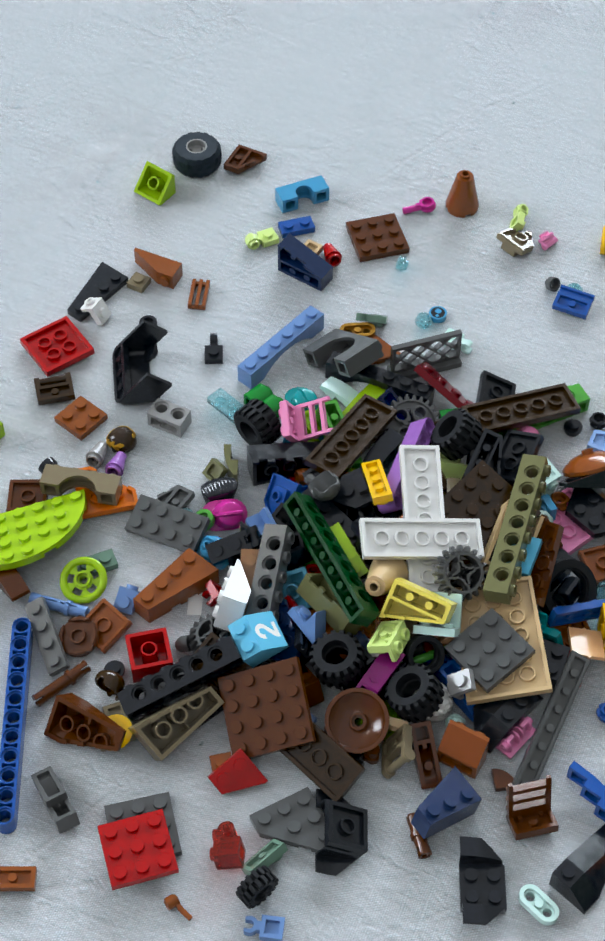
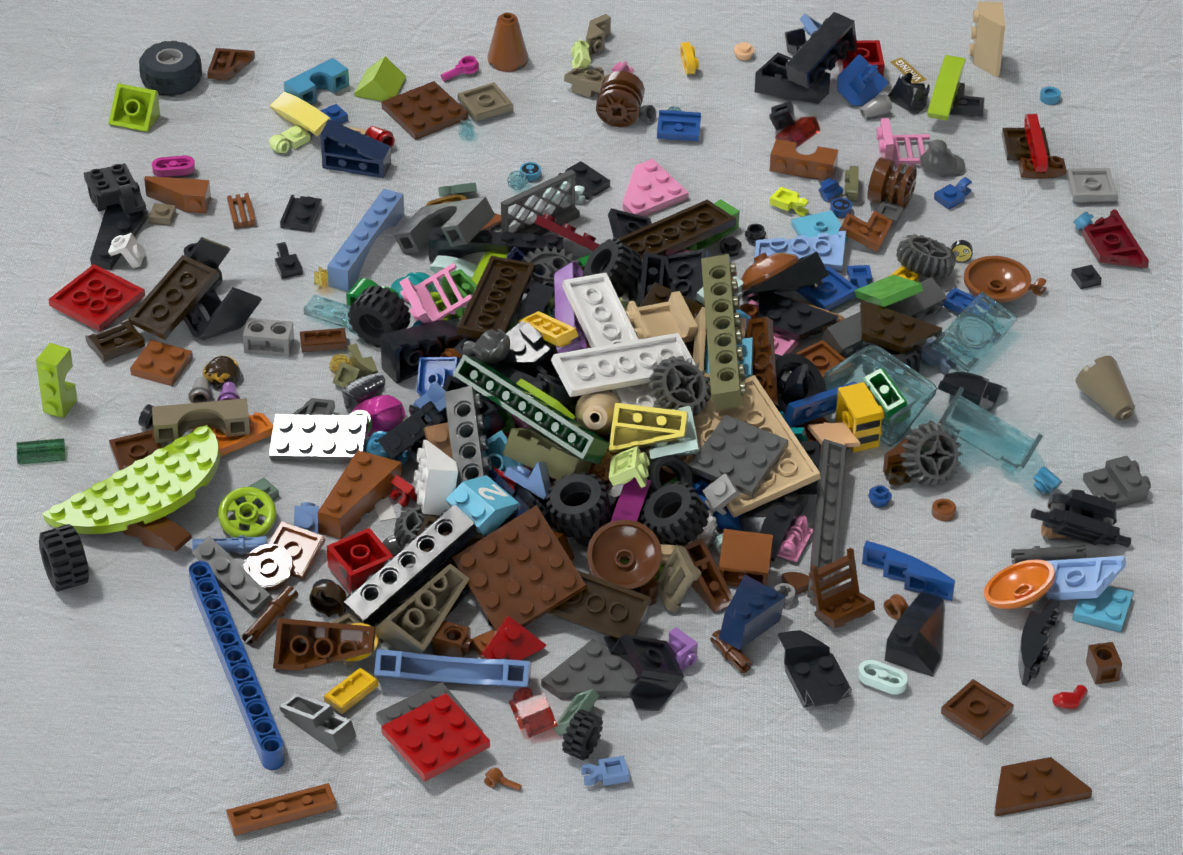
camera: 20 degrees left, 10 degrees down
(93, 777) = (351, 690): none -> yellow plate
(107, 364) = (173, 297): none -> dark brown plate
(109, 250) = (114, 186): none -> black plate
(164, 241) = (173, 166): none -> dark pink plate
(191, 746) = (452, 640): none -> reddish brown brick
(209, 797) = (452, 669): none -> medium blue arch
(211, 431) = (323, 340): none -> reddish brown plate
(214, 453) = (335, 362): none -> clear yellow plate
(232, 373) = (321, 278): none -> clear yellow plate
(243, 308) = (301, 213): none -> black plate
(277, 218) = (300, 113): none -> light yellow slope
(353, 203) = (381, 81): none -> lime slope
(378, 821) = (683, 648): none -> medium lavender bracket
(426, 241) = (485, 101): none -> dark tan plate
(471, 501) = (663, 318): none -> tan panel
(478, 332) = (590, 179): none -> black plate
(491, 788) = (789, 591): none -> light grey bush
(528, 357) = (652, 190): none -> bright pink plate
(533, 267) = (620, 99): none -> reddish brown wheel
(539, 198) = (596, 33): none -> dark tan slope
(577, 833) = (895, 606): none -> dark orange bush

